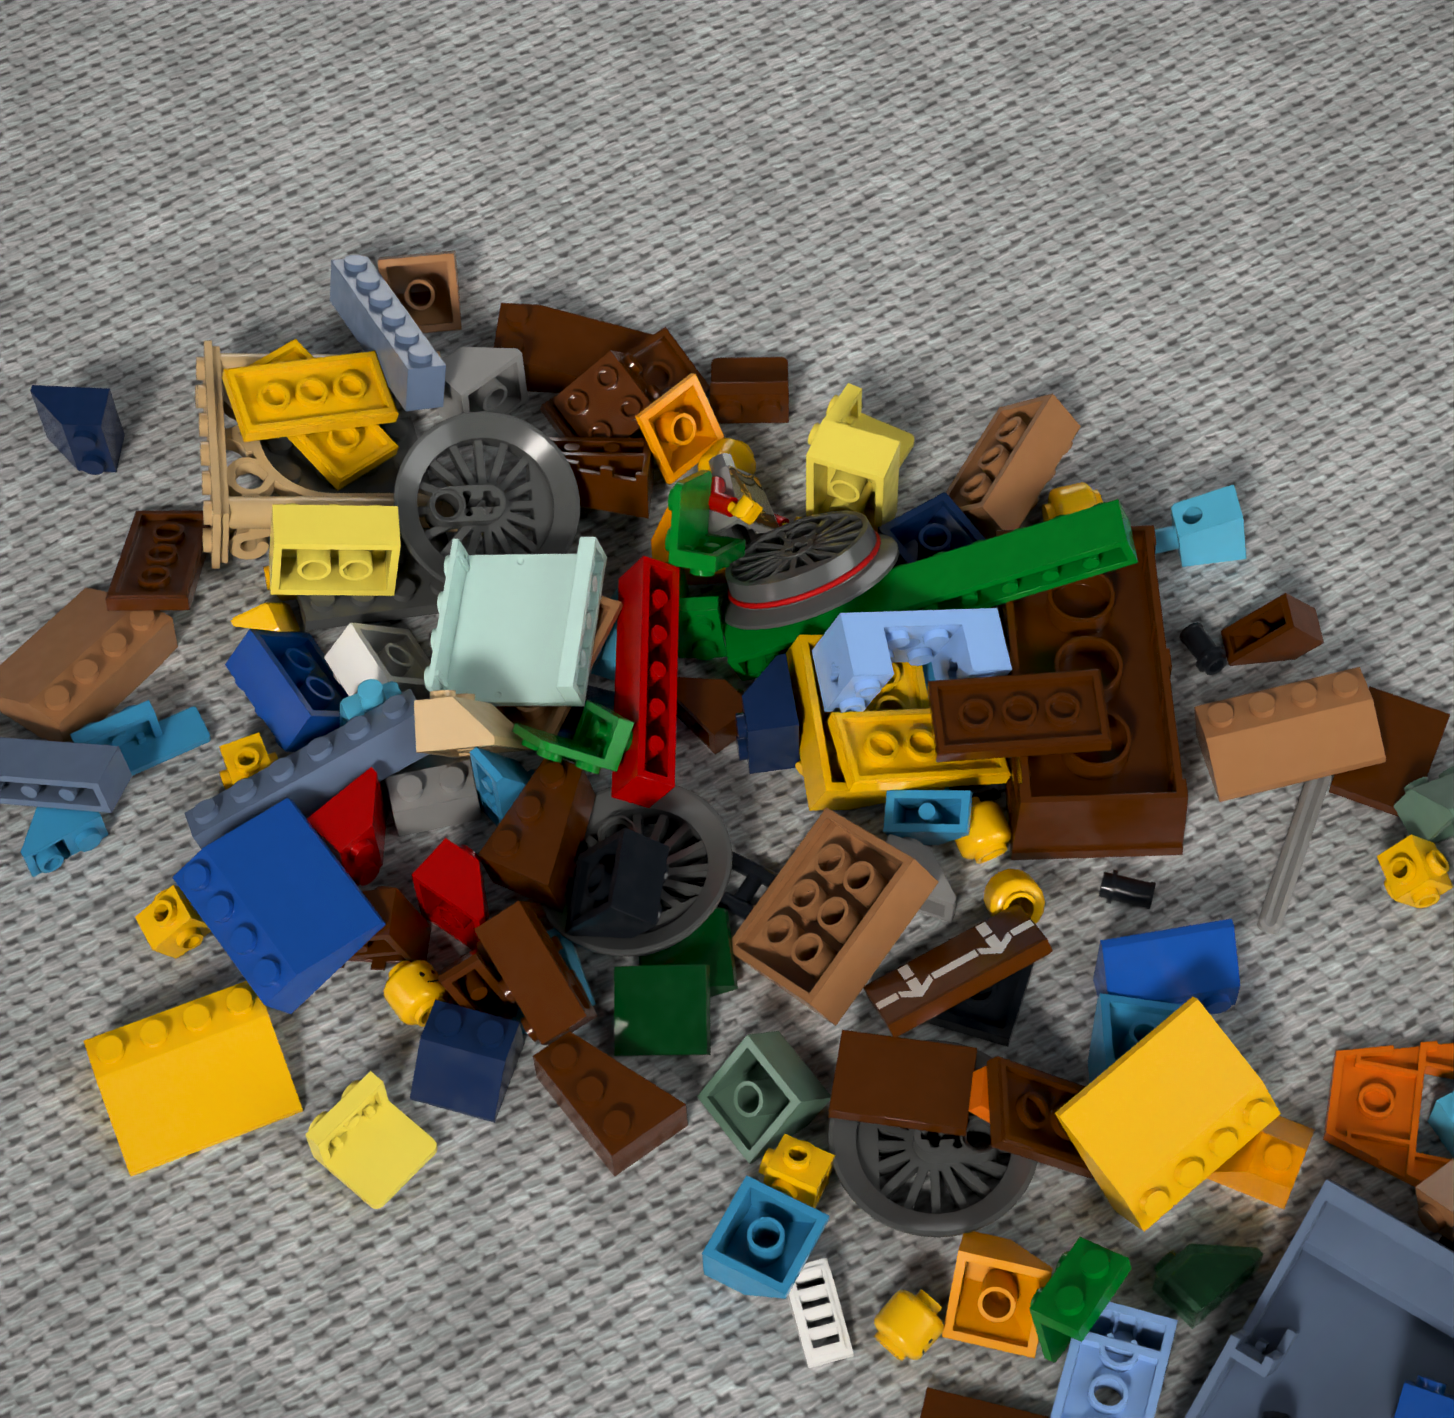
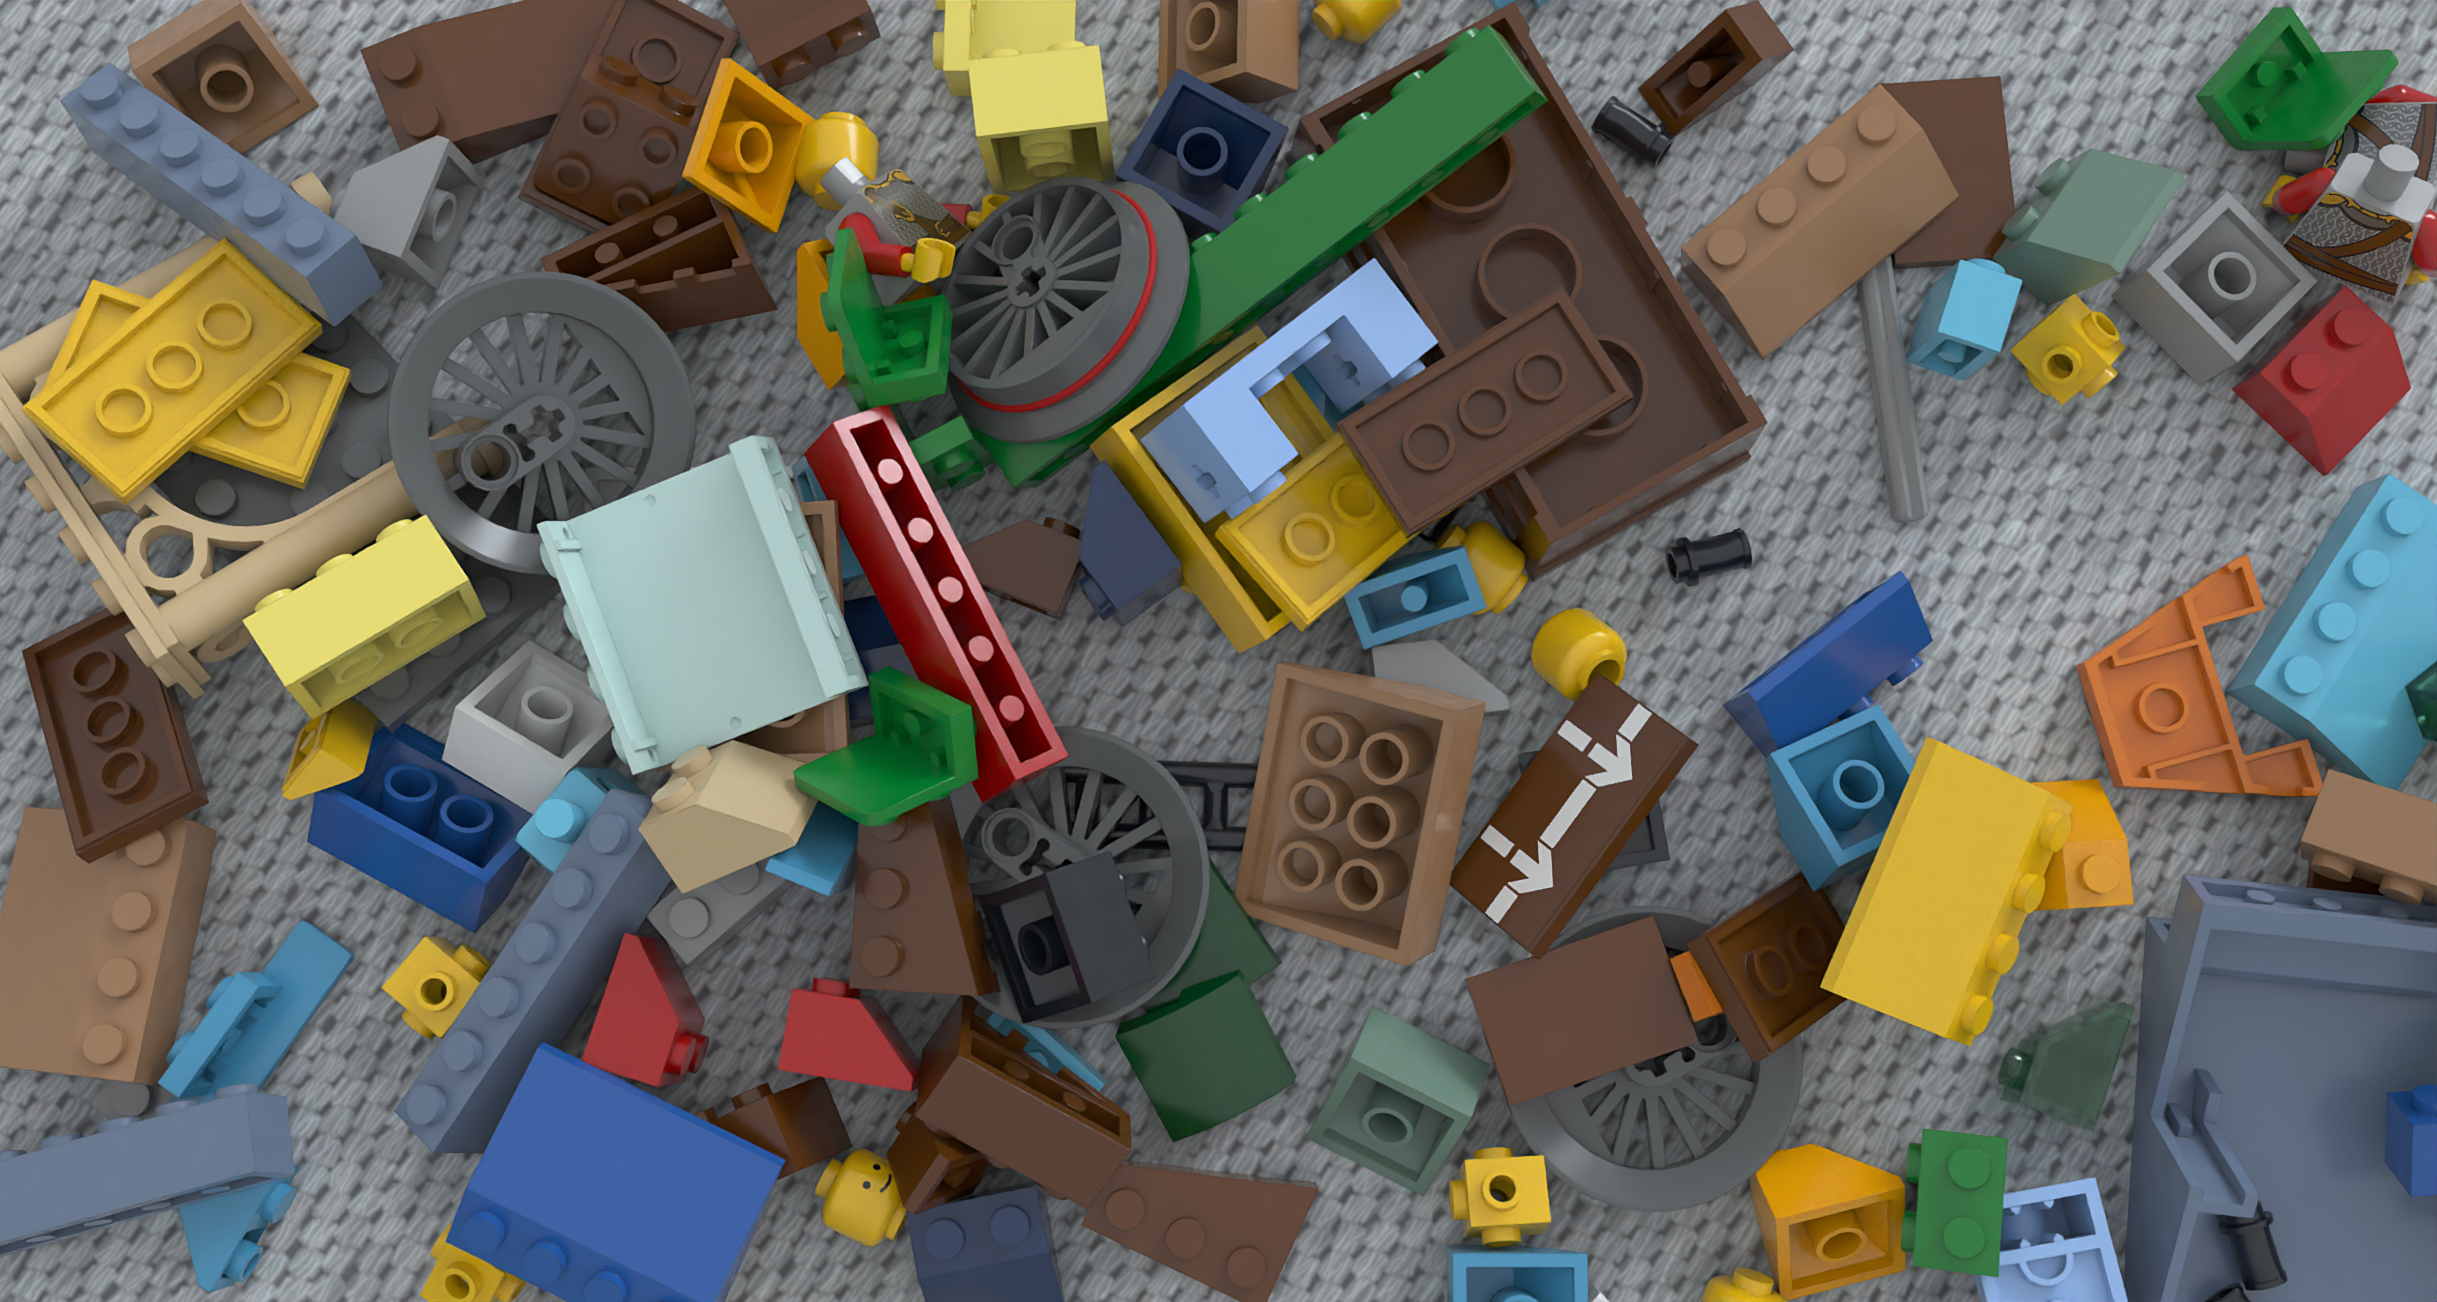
camera: 30 degrees left, 25 degrees up
(1351, 821) = (1964, 319): none -> medium azure brick

